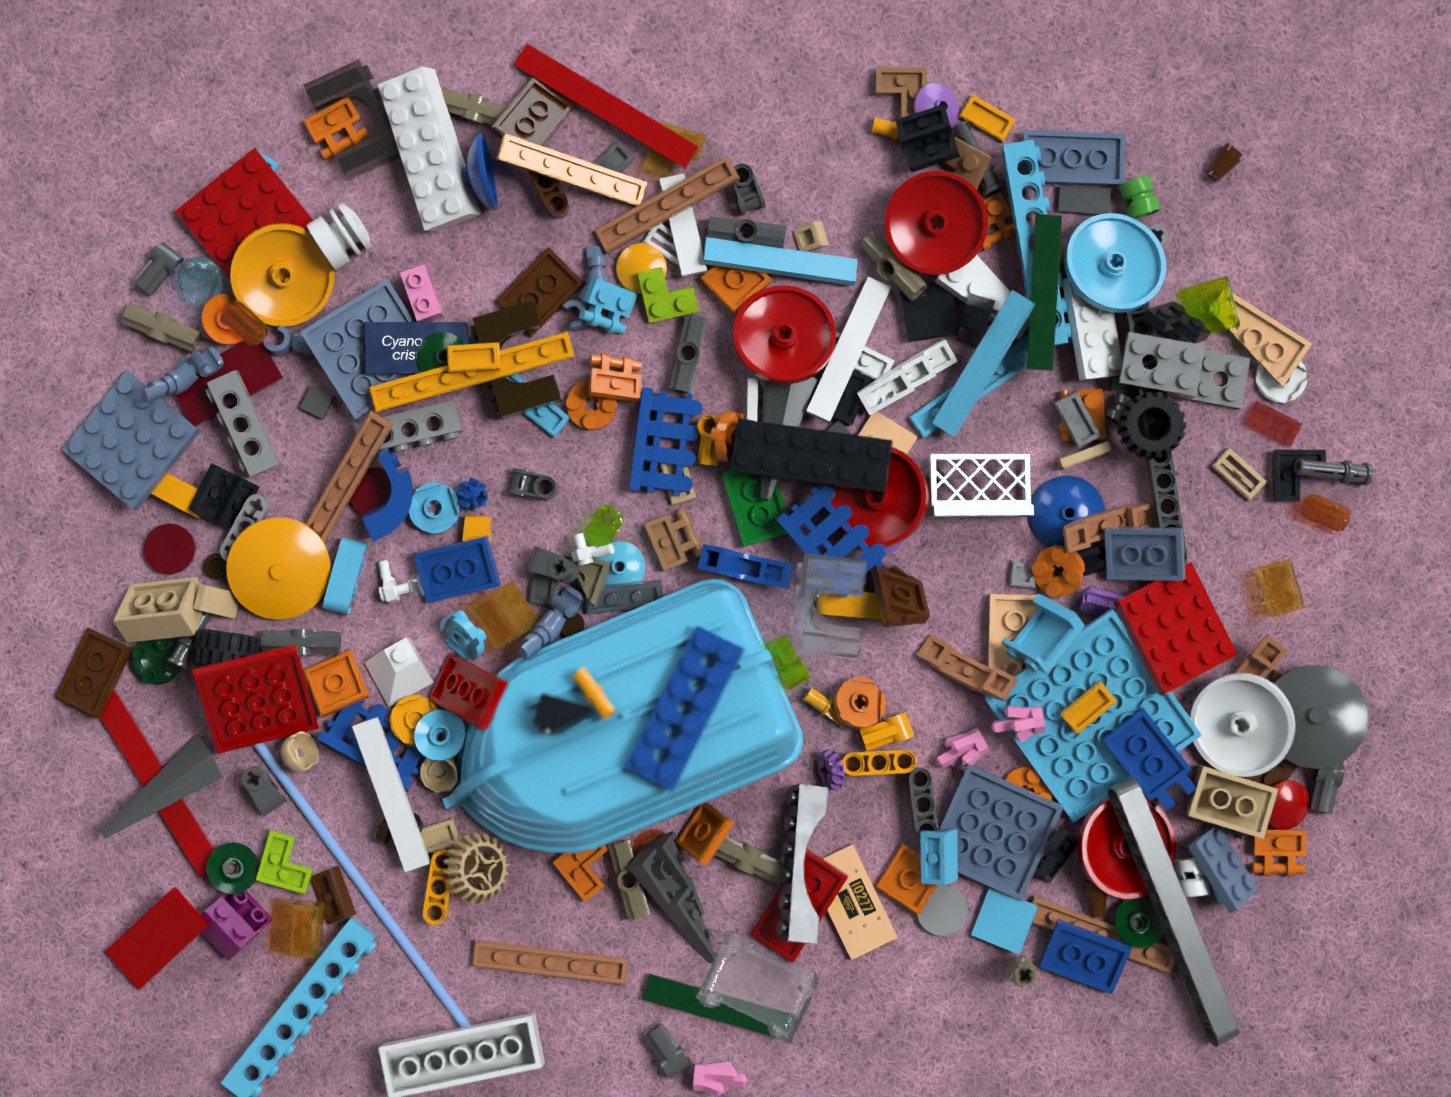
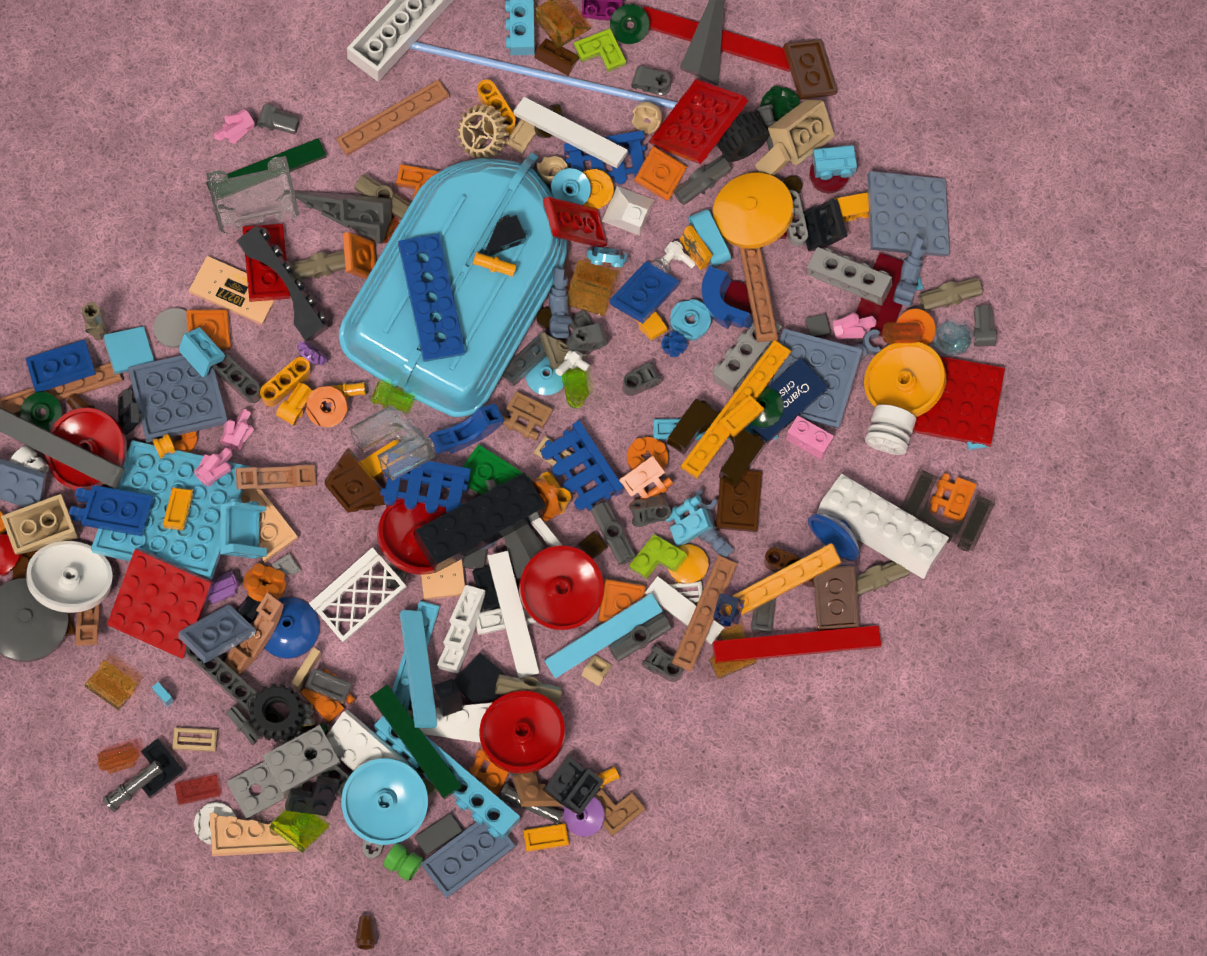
camera: 135 degrees right, 15 degrees down
(156, 552) = (834, 162): none -> medium azure brick
(287, 370) = (852, 326): none -> bright pink rock
(367, 575) = (695, 247): none -> light orange tile
(632, 346) = (648, 510): none -> dark grey piece
(633, 190) = (725, 601): none -> clear blue brick
(716, 359) = (592, 545): none -> dark brown tile
(1051, 786) = (163, 446): none -> light orange wheel
(1183, 454) = (243, 724): none -> dark grey axle
(1237, 540) = (162, 694): none -> medium azure tile

